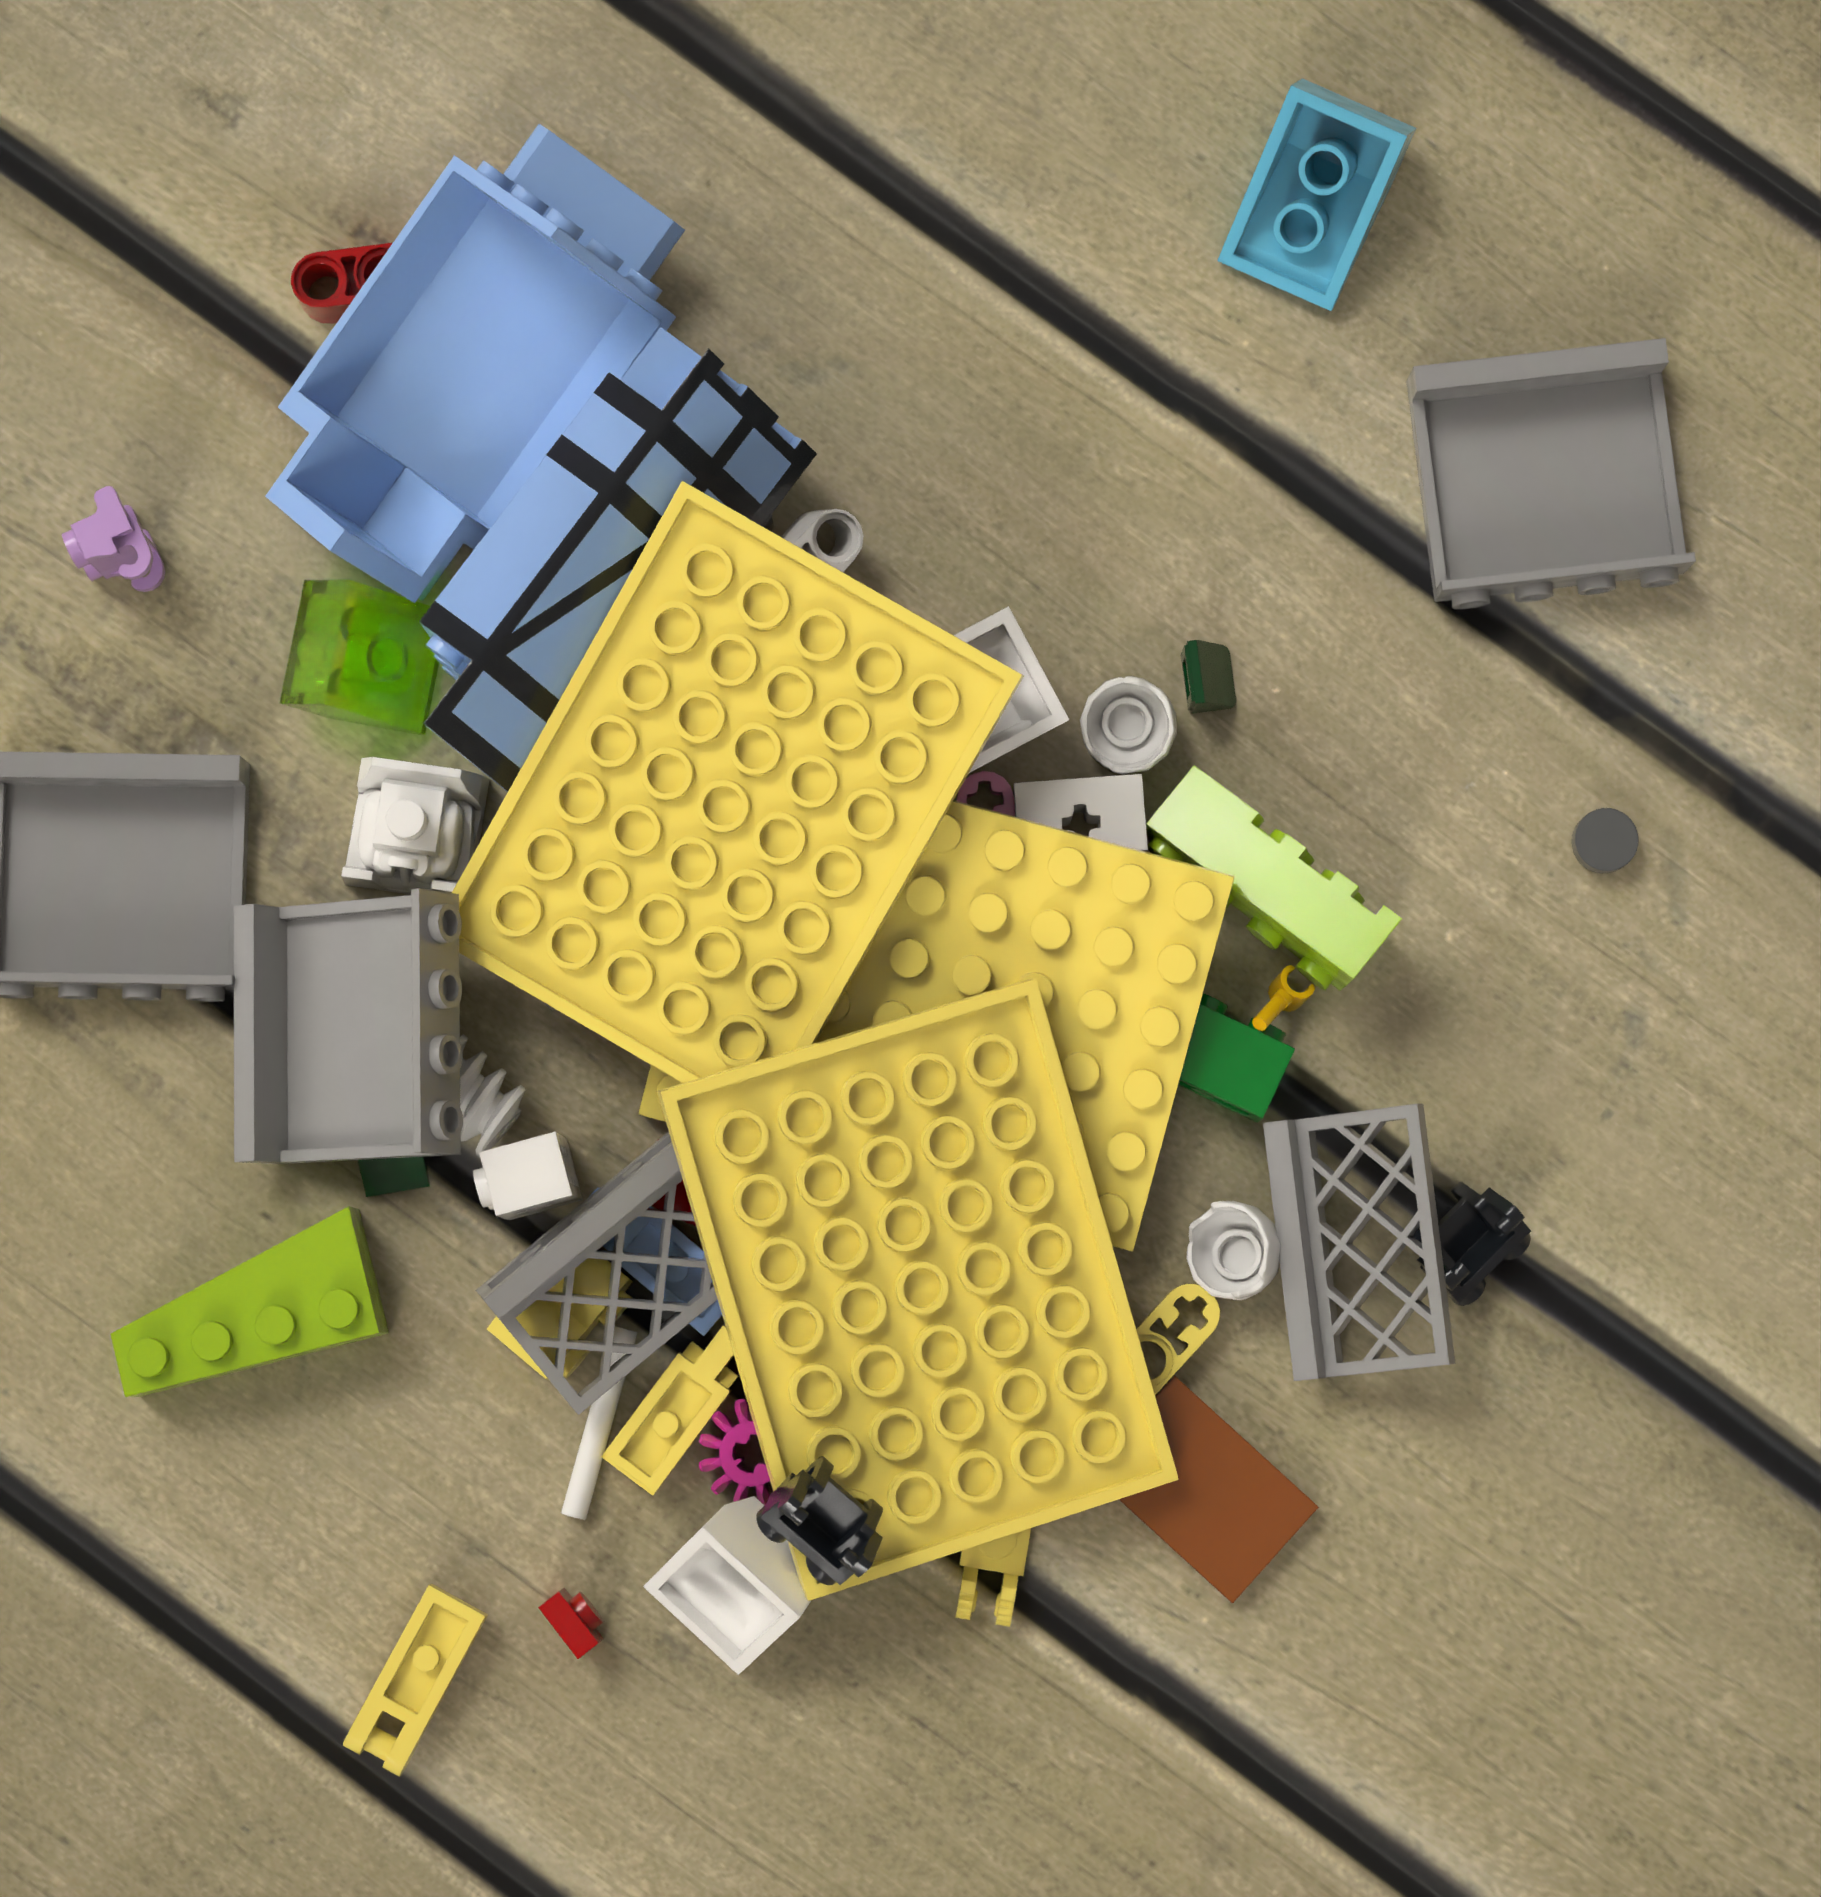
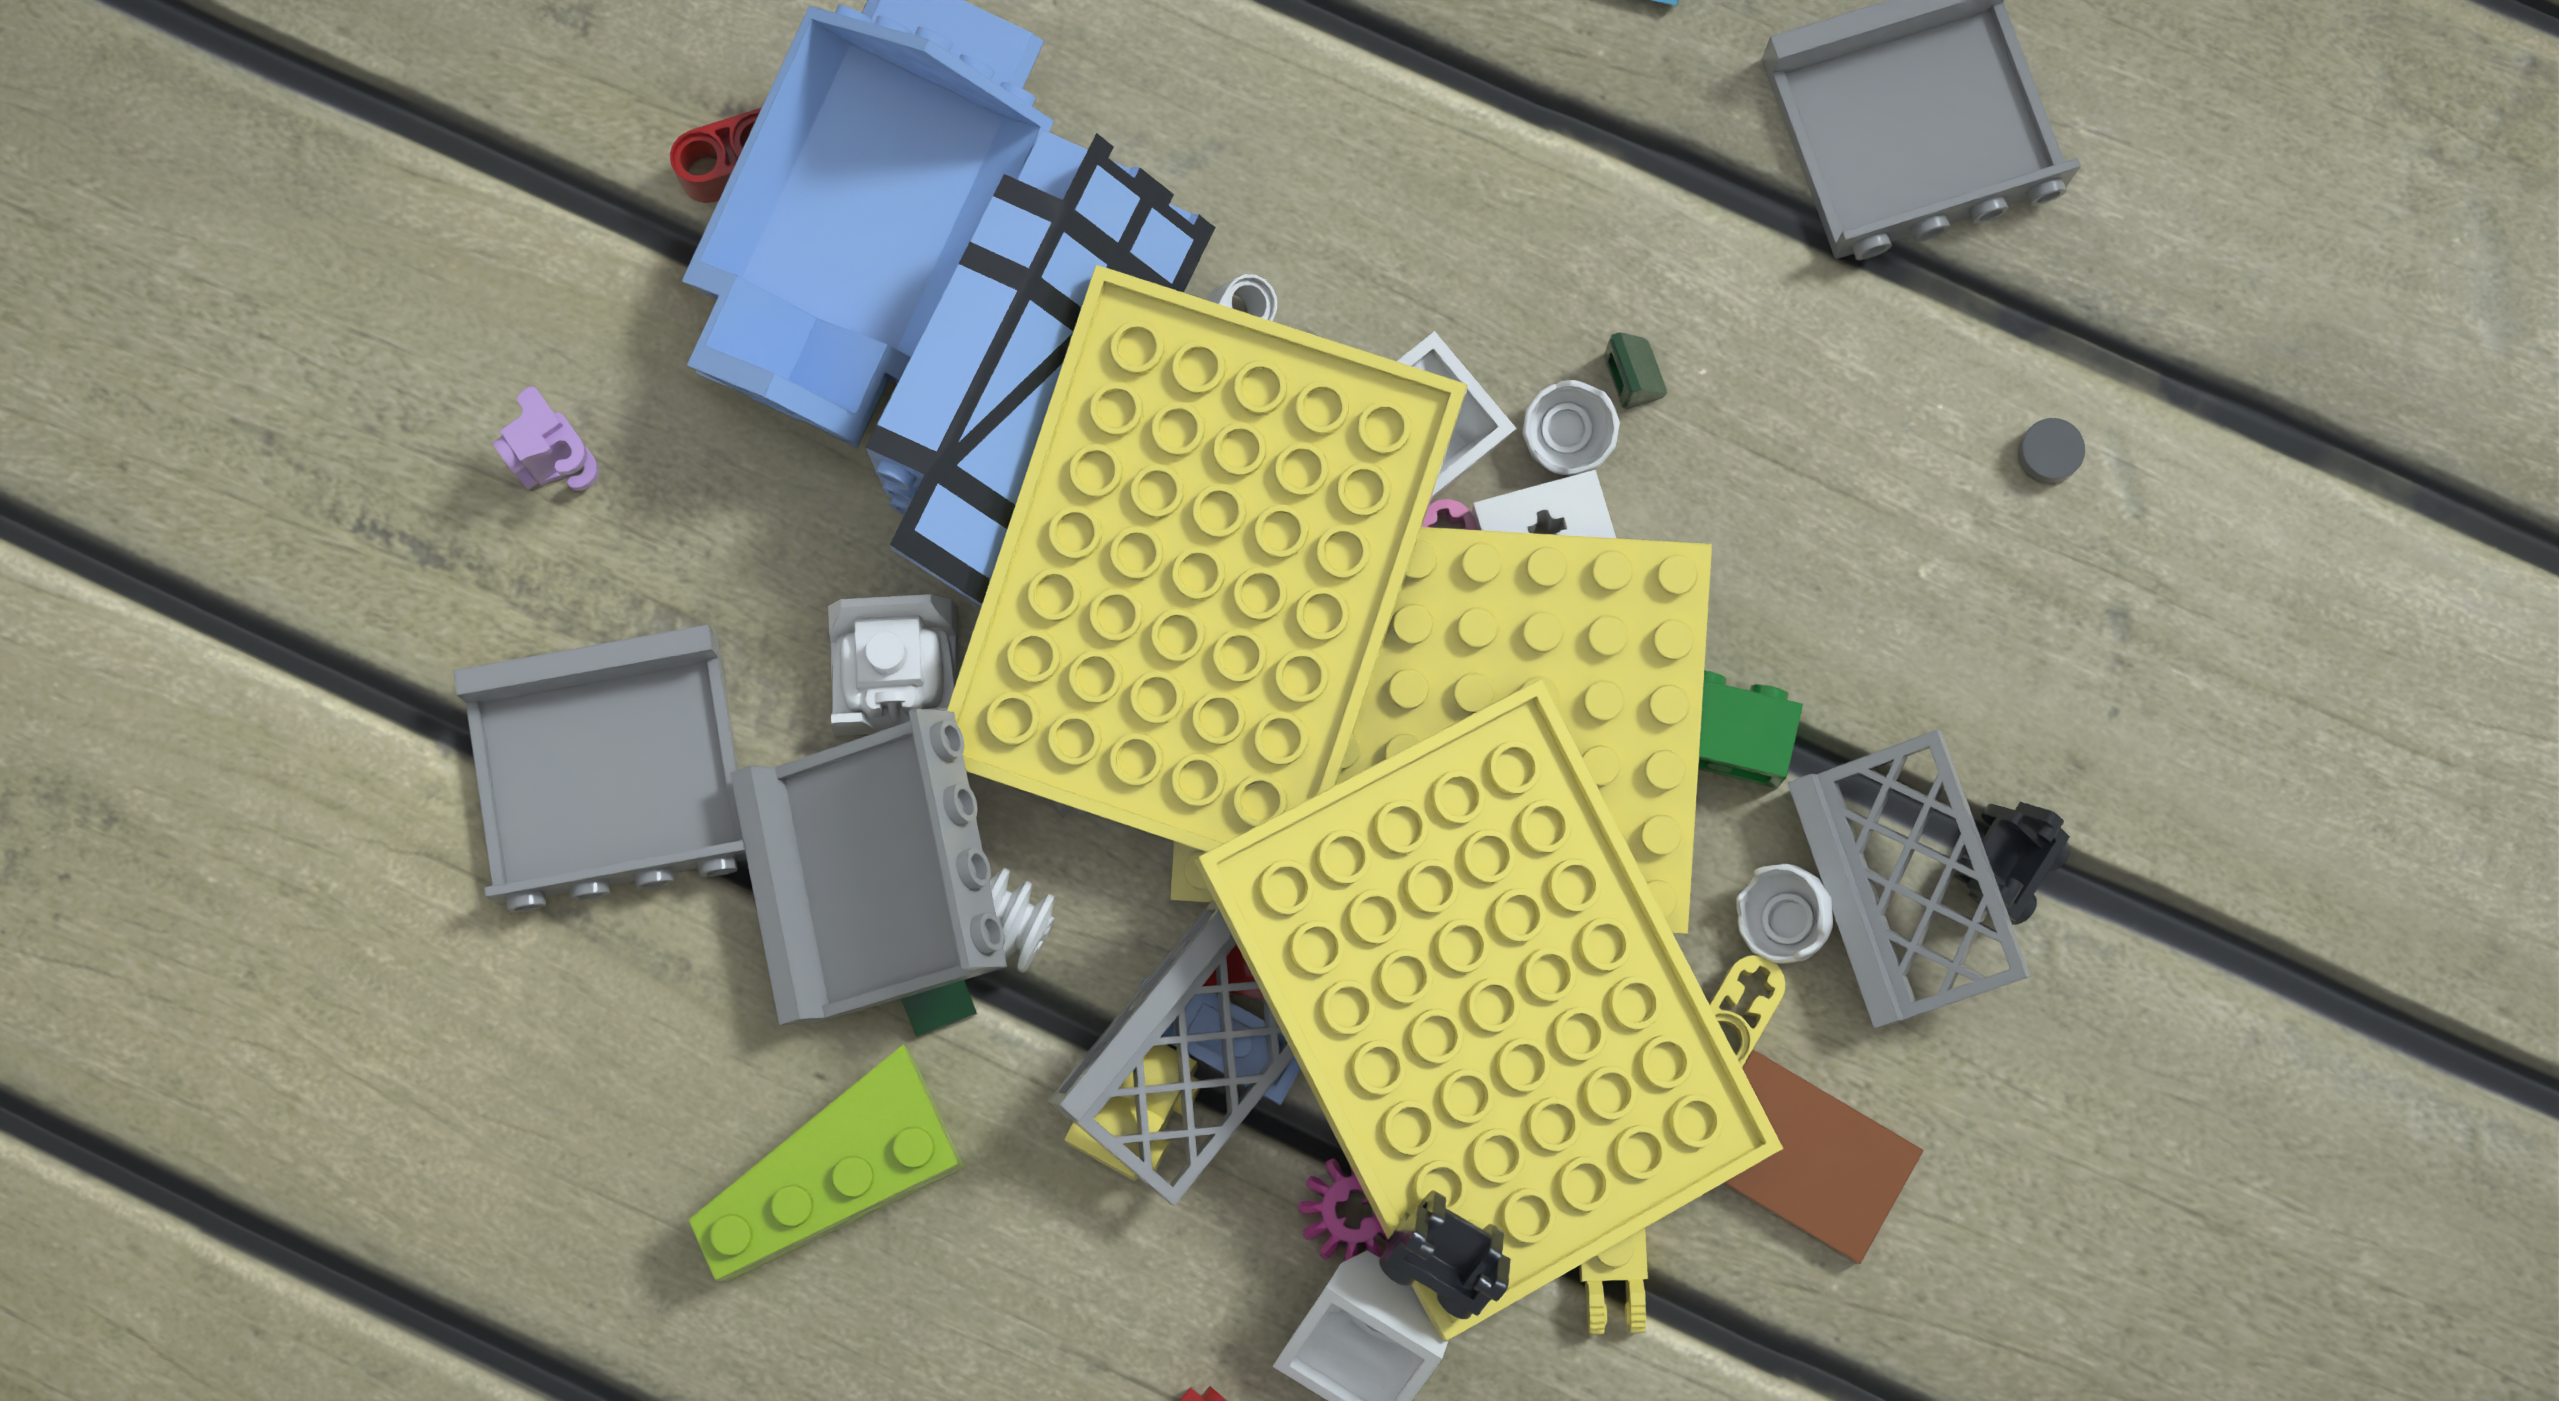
camera: 15 degrees left, 5 degrees down
(360, 657) = (809, 508): clear neon green slope -> none
(527, 1177) = (1075, 979): white brick -> none
(595, 1440) = (1192, 1234): white bar -> none
(673, 1413) = (1267, 1186): light yellow hinge -> none
(1273, 881) = (1755, 558): wedge -> none
(1281, 999) = (1776, 661): yellow hand -> none

